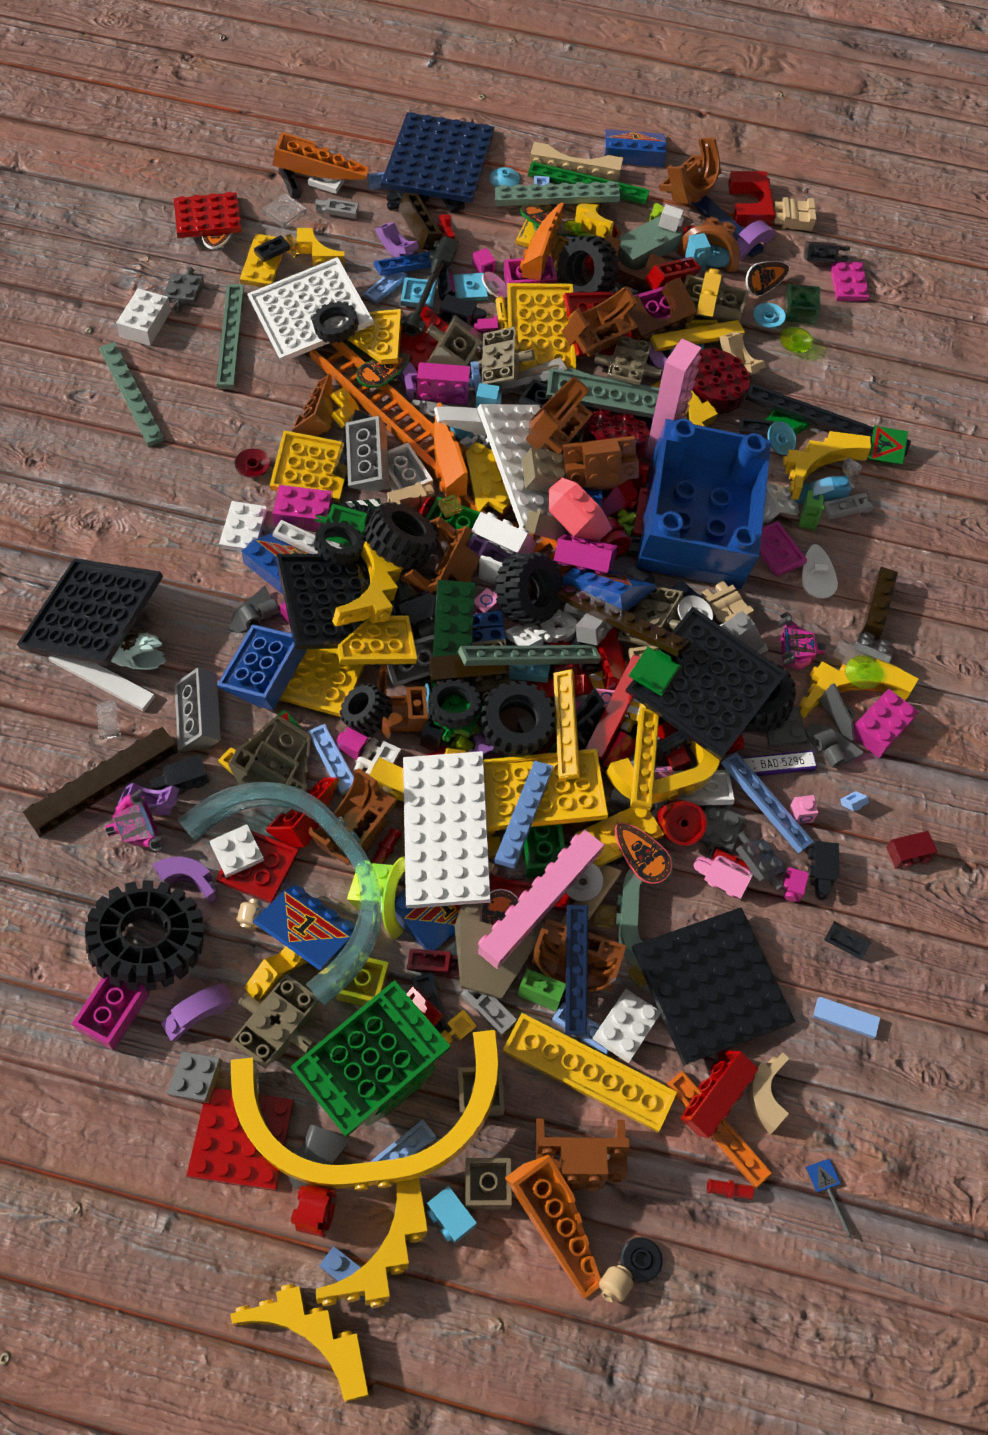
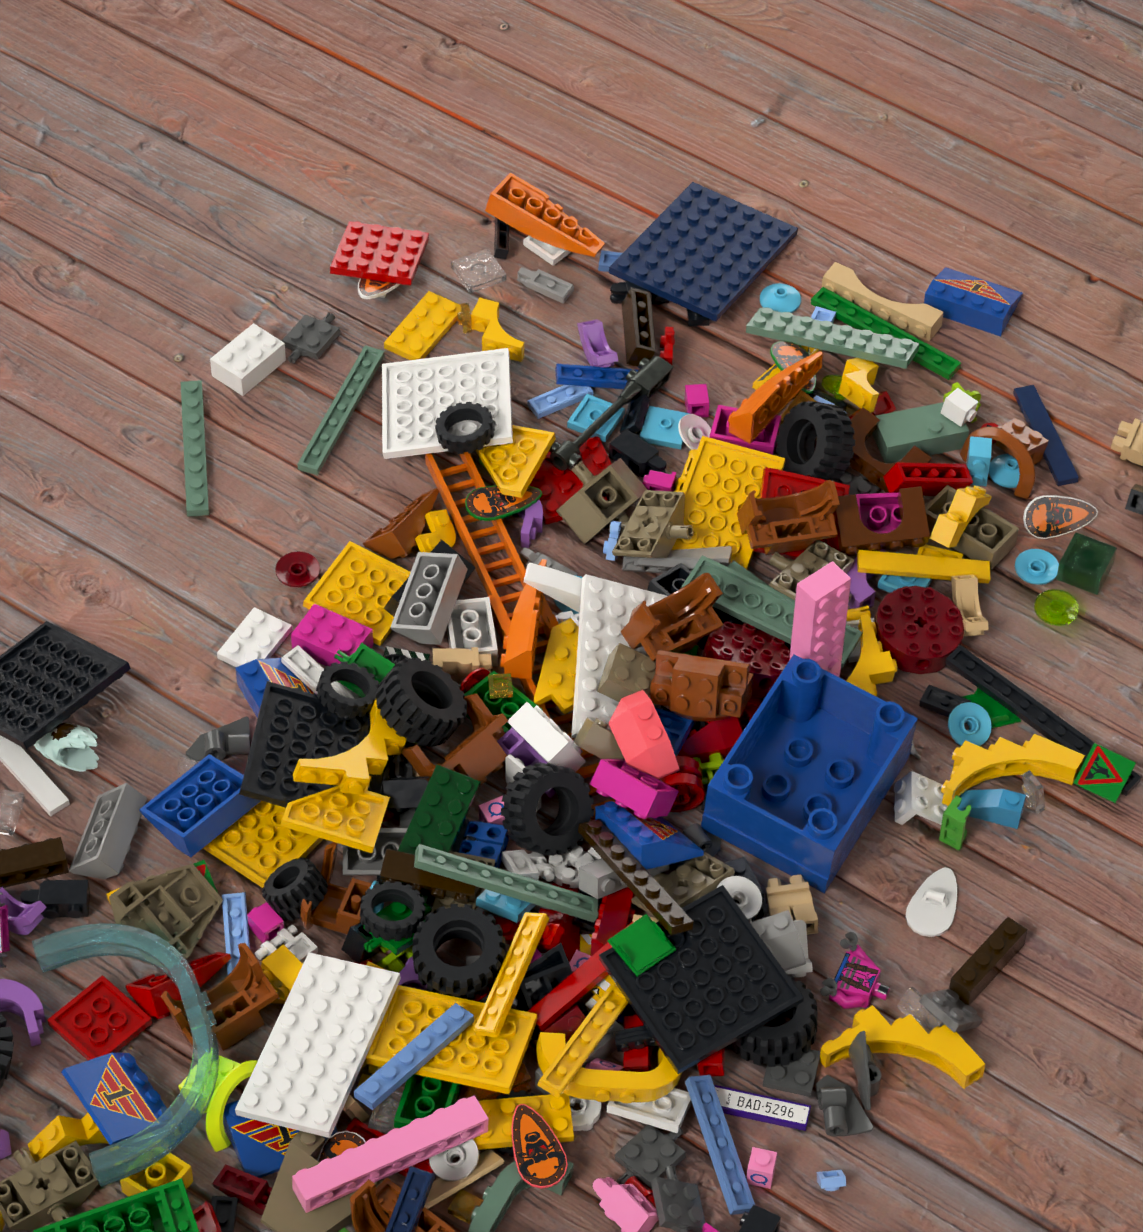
camera: 25 degrees right, 10 degrees down
(236, 850) = (82, 996): white plate -> none
(248, 912) = (64, 1061): tan head -> none
(272, 248) = (437, 315): black plate -> none
(386, 847) = (251, 1048): red pin -> none
(443, 383) = (568, 538): dark pink brick -> none
(488, 394) = (613, 568): medium azure brick -> none
(686, 182) = (1013, 366): dark orange piece -> none
(692, 825) = (604, 1115): red wheel -> none
(754, 234) = (1067, 457): medium lavender arch -> none
(755, 184) = (1096, 431): red arch -> none
(780, 550) = (893, 857): dark pink plate -> none
(847, 506) = (1014, 833): light grey plate -> none
(864, 678) = (918, 1042): clear neon green dish -> none
(884, 723) = (916, 1102): dark pink brick -> none

